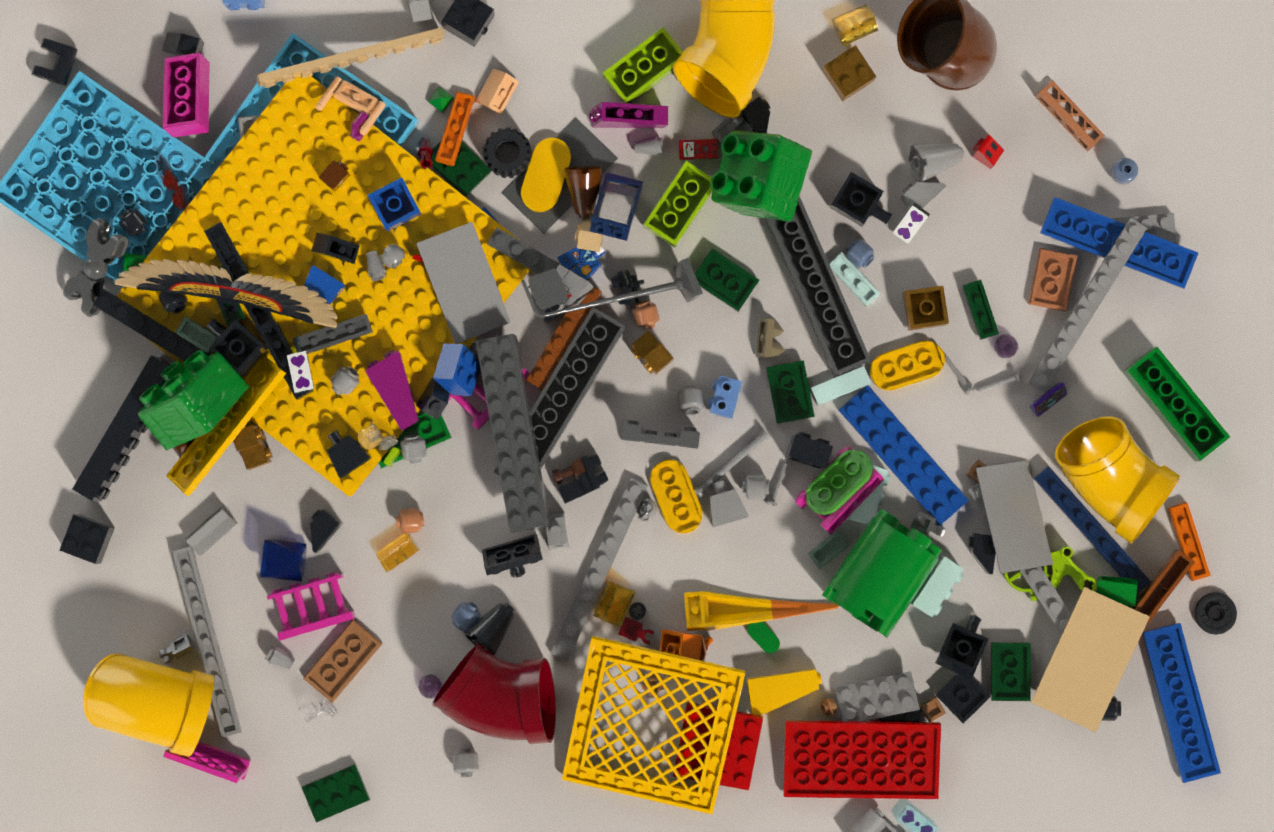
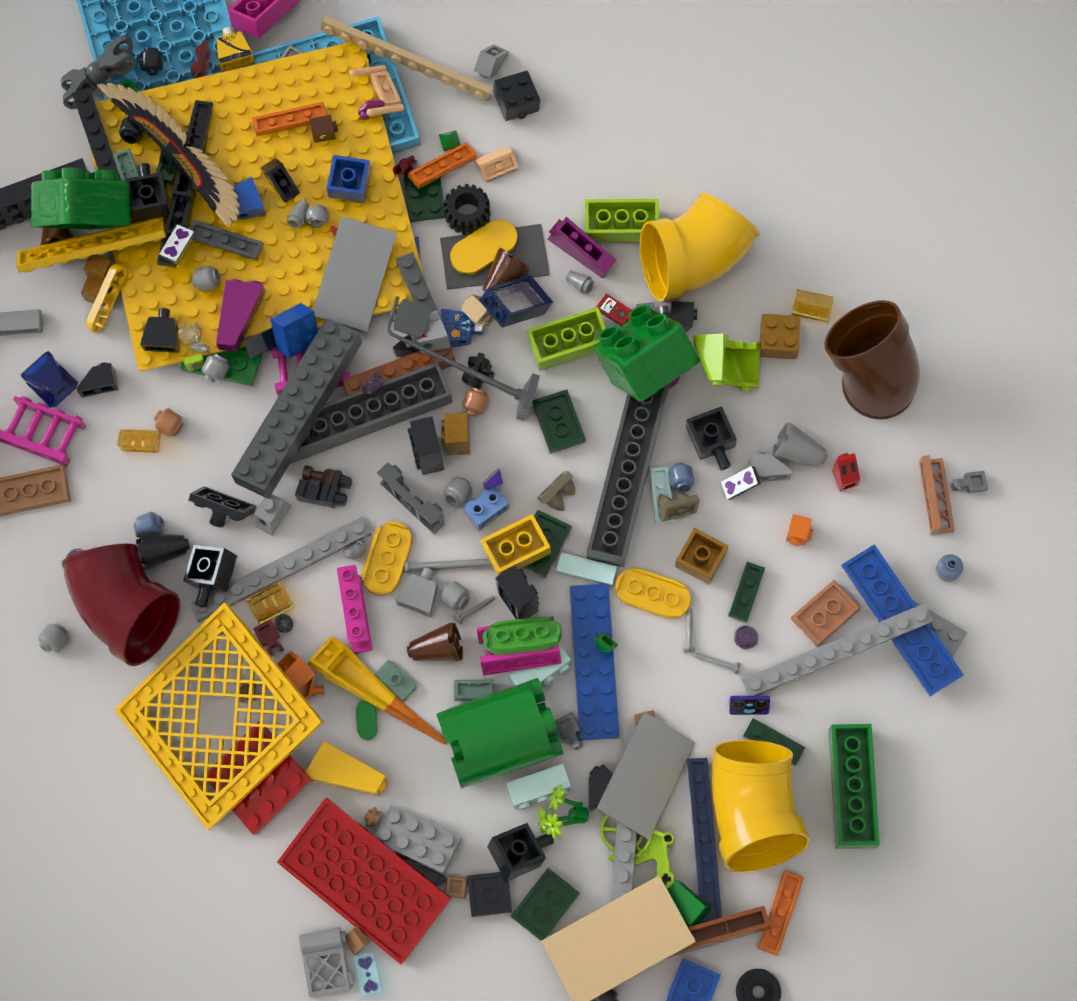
camera: 40 degrees right, 15 degrees down
(195, 159) = (233, 50): none -> yellow torso
(272, 457) = (104, 297): none -> yellow beam
(297, 186) = (287, 119): none -> orange tile
(548, 616) = (209, 571): none -> black brick
(557, 367) = (372, 384): none -> clear purple plate
(641, 384) = (425, 446): none -> black brick
(689, 560) = (354, 609): none -> dark pink fence
(713, 371) = (493, 480): none -> dark purple slope
(761, 588) = (395, 680): none -> sand green plate
(774, 537) = (437, 645): none -> reddish brown cone
(776, 413) = (516, 545): none -> yellow brick
(829, 128) = (729, 361): none -> lime windscreen
(873, 287) = (682, 506): none -> dark tan tile
(891, 807) = (356, 940): none -> medium nougat tile
(905, 436) = (605, 643): none -> green slope
(984, 585) = (576, 815): none -> plant
(985, 228) = (799, 530): none -> orange brick
(1081, 413) = (761, 732): none -> dark green plate
(1091, 83) = (972, 481): none -> flat silver plate

